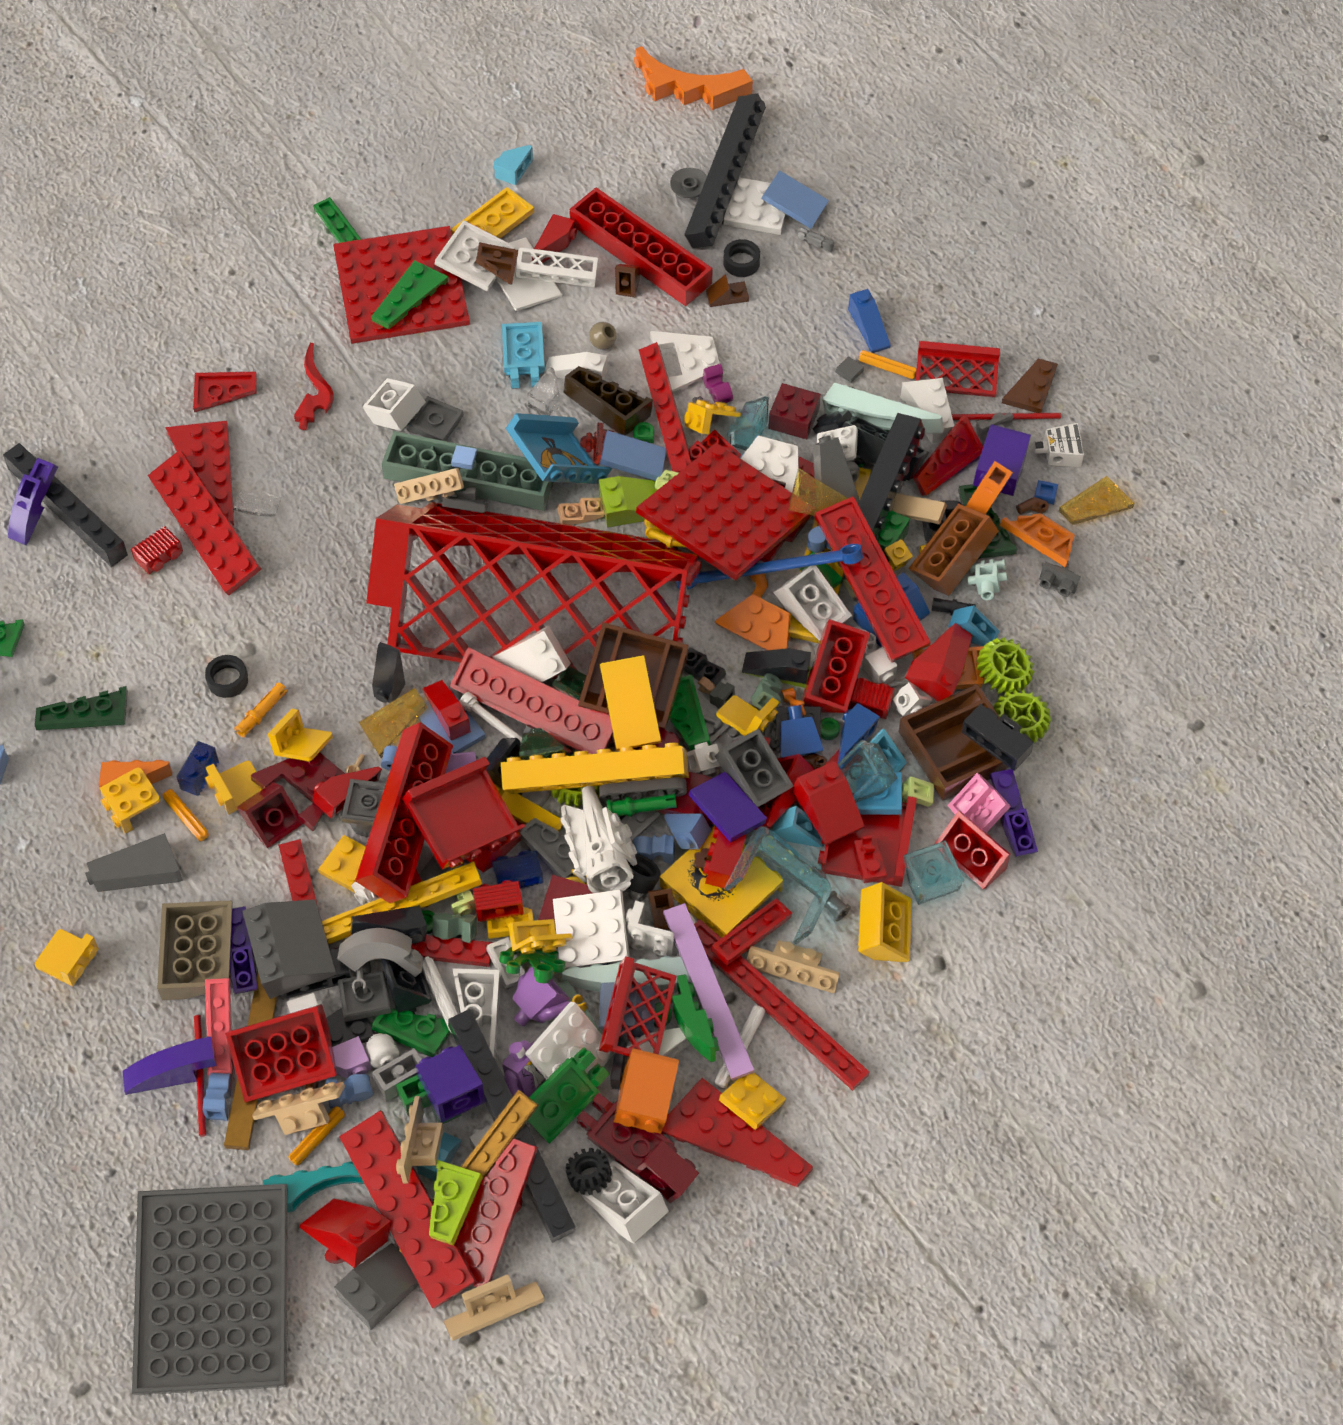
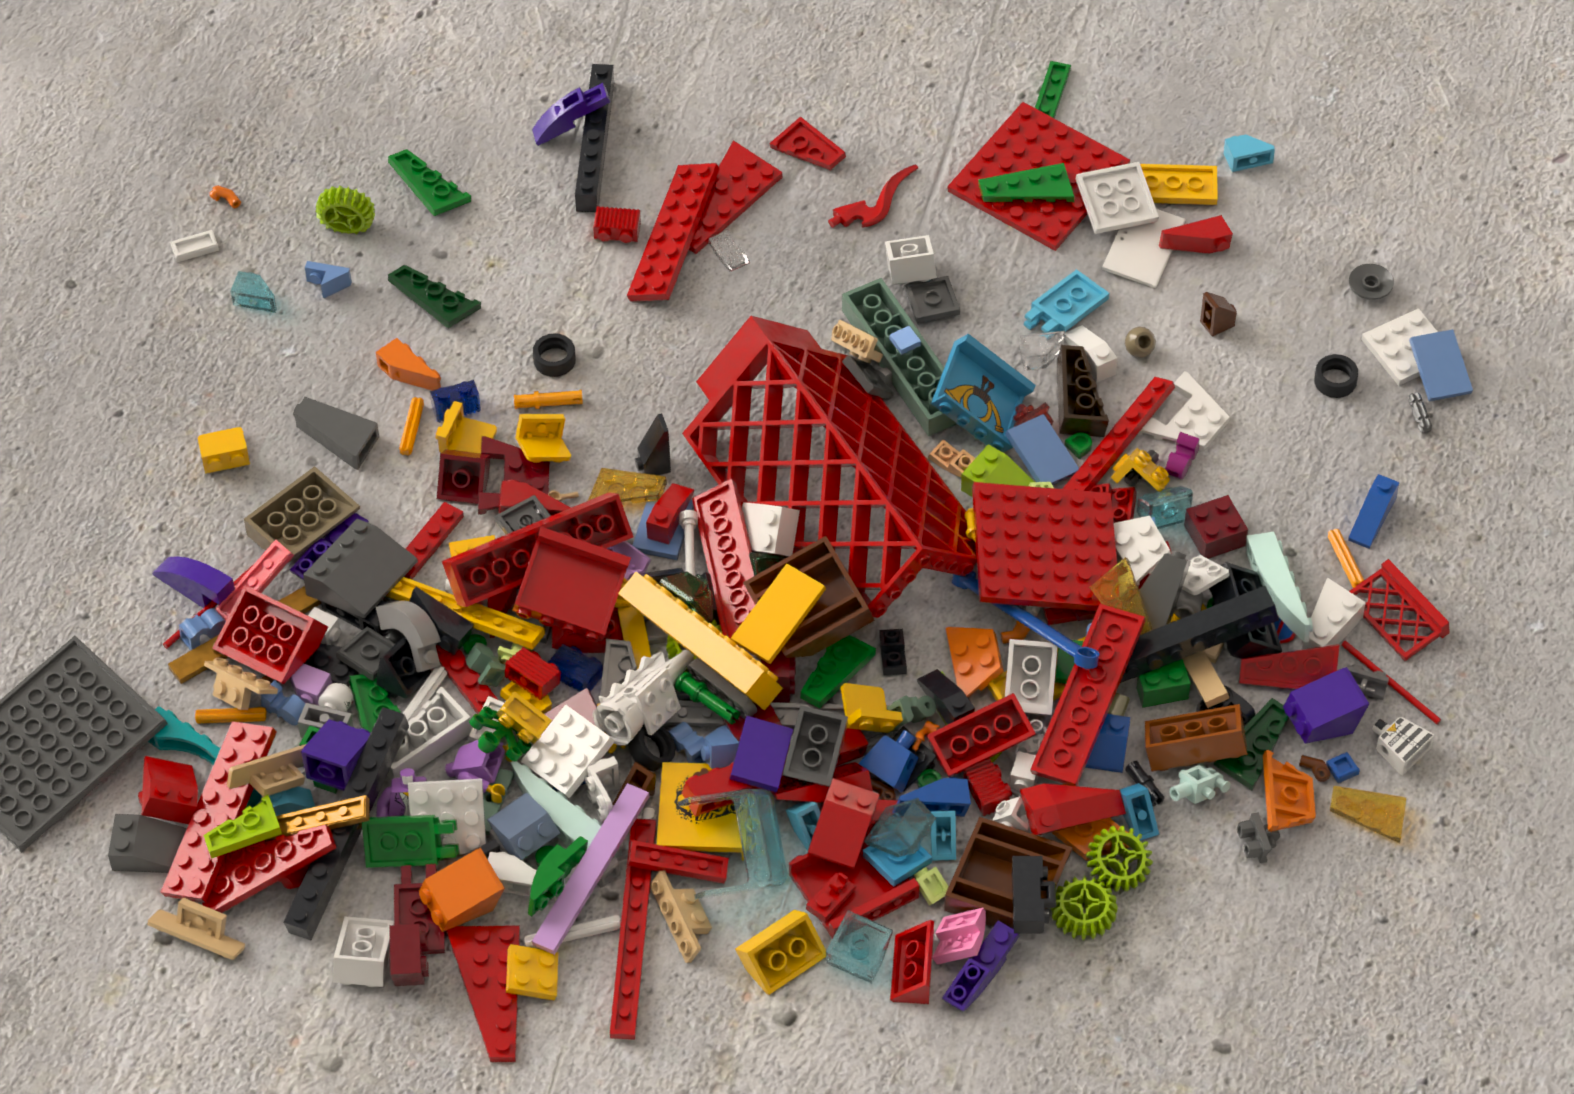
camera: 50 degrees right, 5 degrees down
(128, 797) = (384, 377): yellow bracket -> none
(359, 982) = (373, 640): light grey hand -> none
(498, 260) = (1125, 215): reddish brown wing -> none
(556, 274) = (1164, 264): white fence -> none
(592, 1181) = (364, 907): black tyre -> none
(620, 1000) = (518, 809): red fence -> none
(641, 245) = (1260, 298): red brick -> none
(689, 87) = (1492, 222): orange arch -> none
(703, 759) = (789, 706): white brick -> none
(718, 694) = (880, 678): pearl dark grey piece -> none
(722, 293) = (1289, 395): reddish brown slope -> none
(725, 171) = (1413, 294): black brick -> none
(831, 421) = (1232, 557): black plate -> none
(836, 906) = (763, 905): dark grey bush -> none
(849, 369) = (1309, 535): dark grey tile -> none
(898, 555) = (1145, 703): yellow bracket -> none
(989, 488) = (1275, 714): orange slope -> none
(1032, 387) = (1446, 680): reddish brown wing -> none

